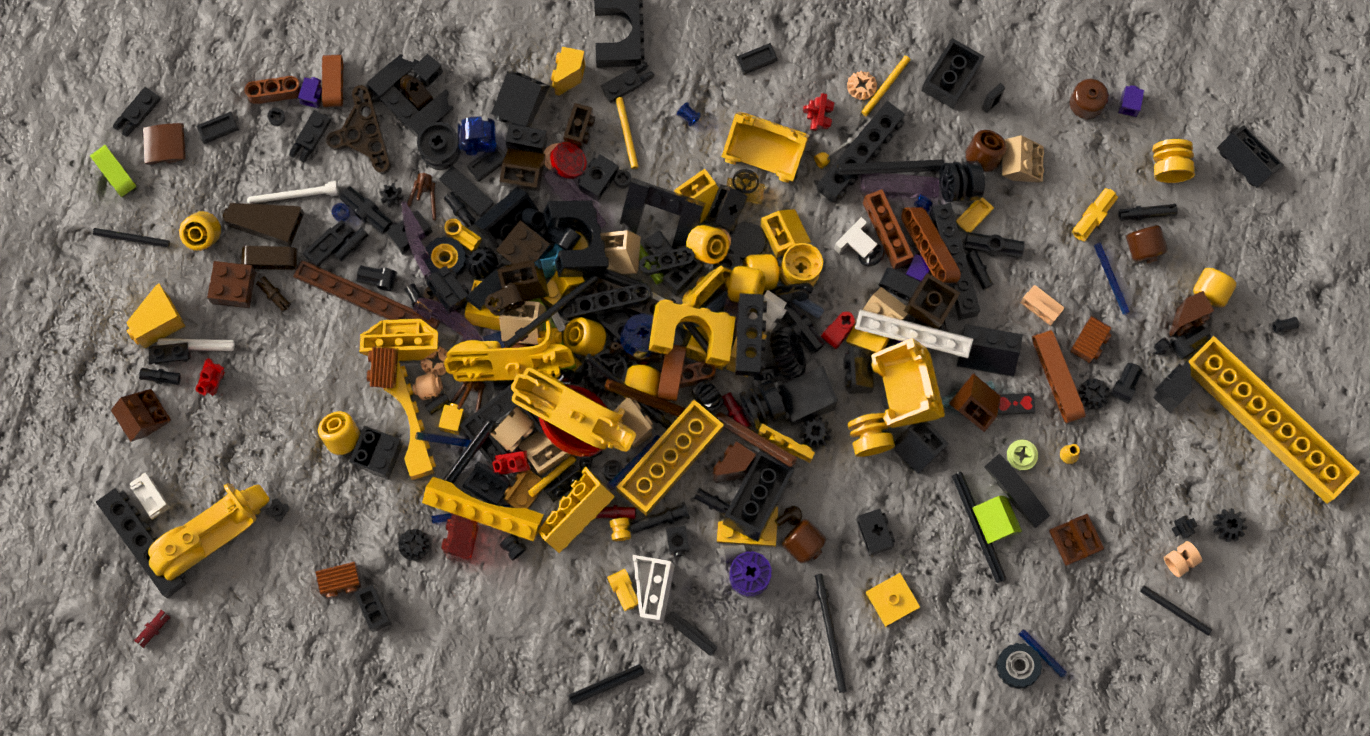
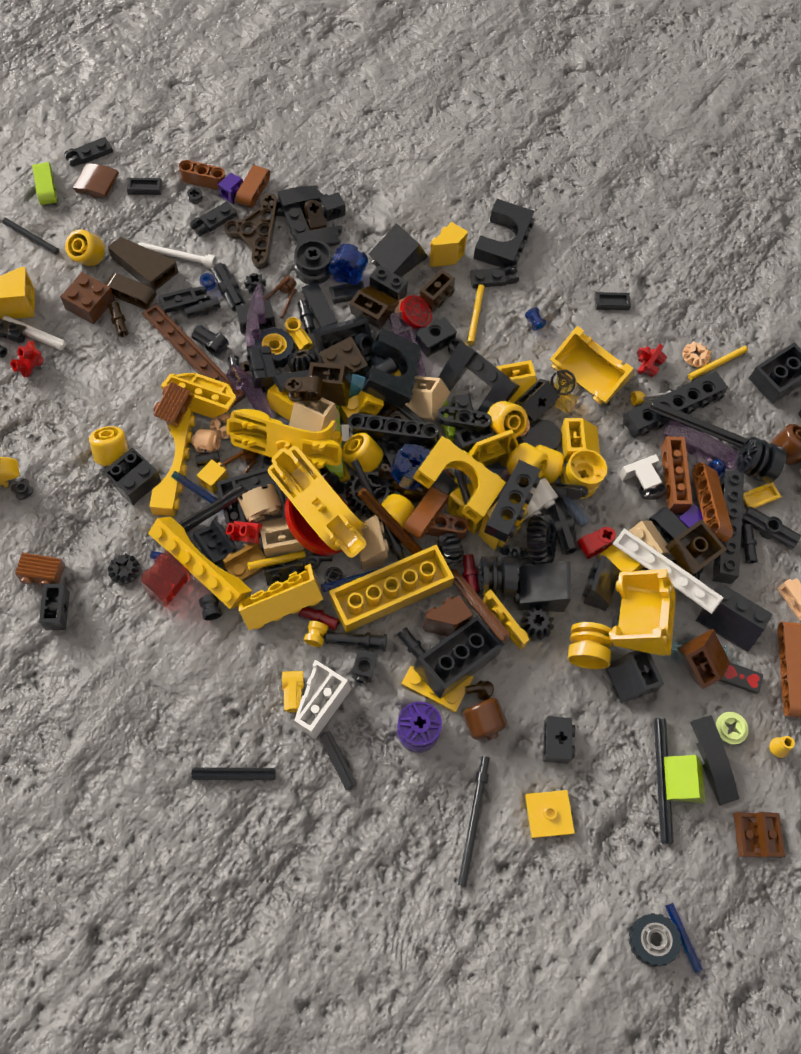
camera: 20 degrees right, 10 degrees down
(522, 333) = (306, 421): black bar -> none

